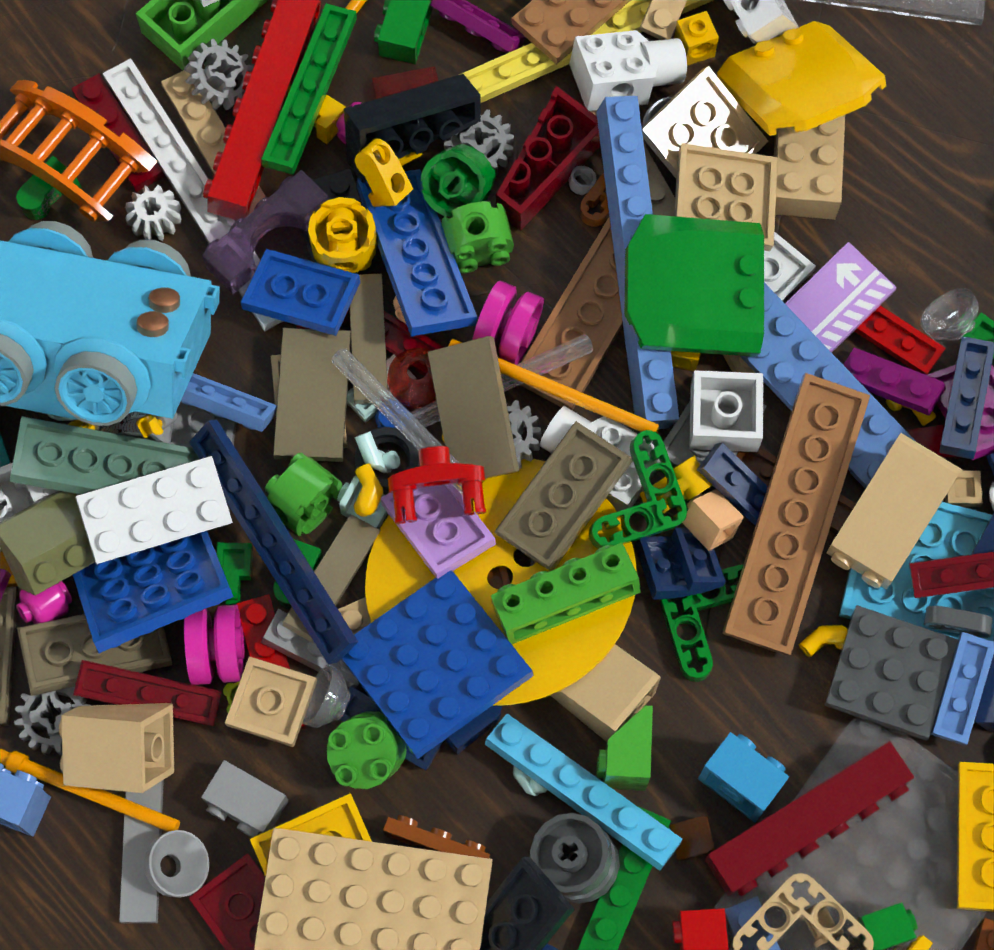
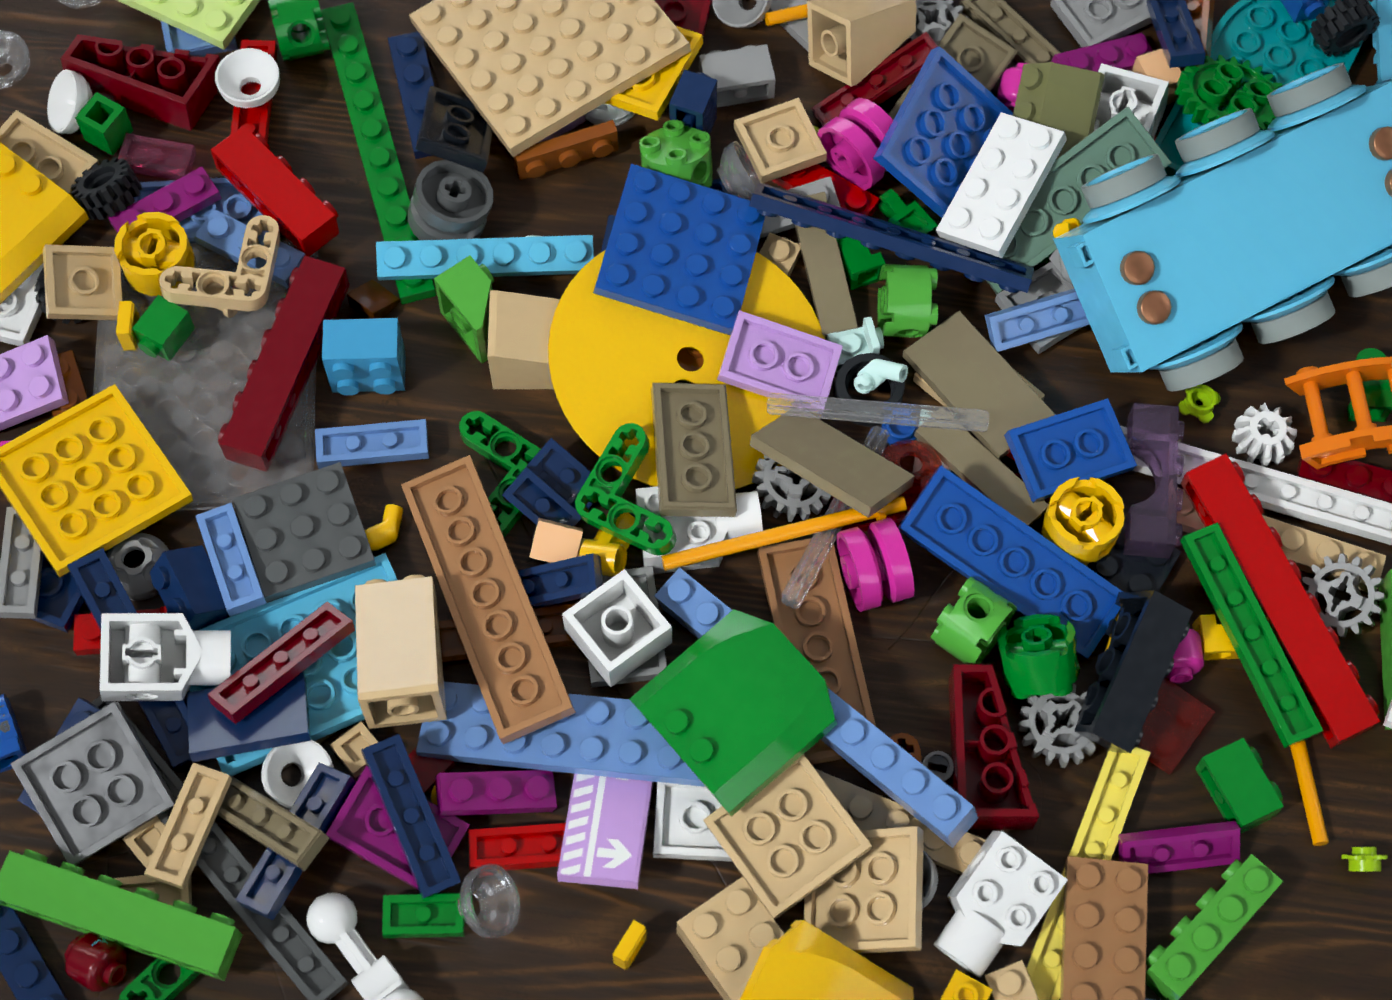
camera: 140 degrees right, 5 degrees down
(311, 784) = (695, 101): none -> dark blue brick
(370, 492) = (855, 342): yellow arm -> none
(383, 174) = (1101, 589): yellow leg -> none
(433, 471) = (811, 379): red connector -> none
(565, 592) = (620, 366): bright green brick -> none
(785, 712) = (372, 443): none -> medium blue plate
(876, 225) = (630, 945): none -> yellow tile
(958, 621) = (274, 610): dark grey beam -> none

